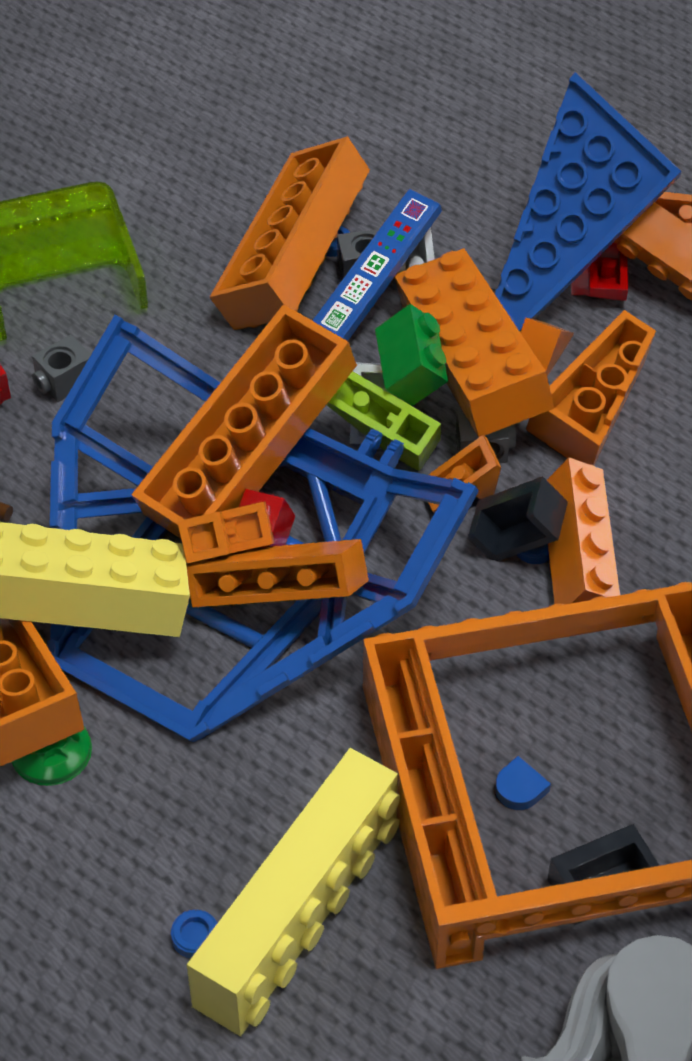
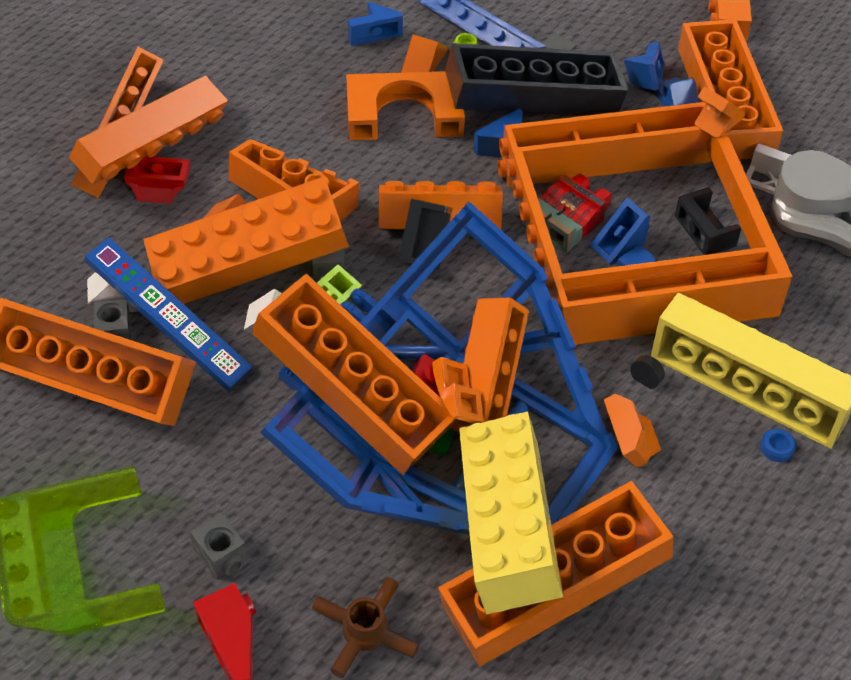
camera: 90 degrees left, 0 degrees up
(212, 754) = (632, 430): none -> orange slope
(310, 777) = (647, 371): none -> black tile
(411, 355) = (274, 267): green brick -> none
(472, 465) = (373, 265): orange slope -> none
(565, 760) = (622, 232): none -> blue slope
(587, 192) = (121, 144): blue wing -> none
(602, 695) = (572, 209): none -> hips

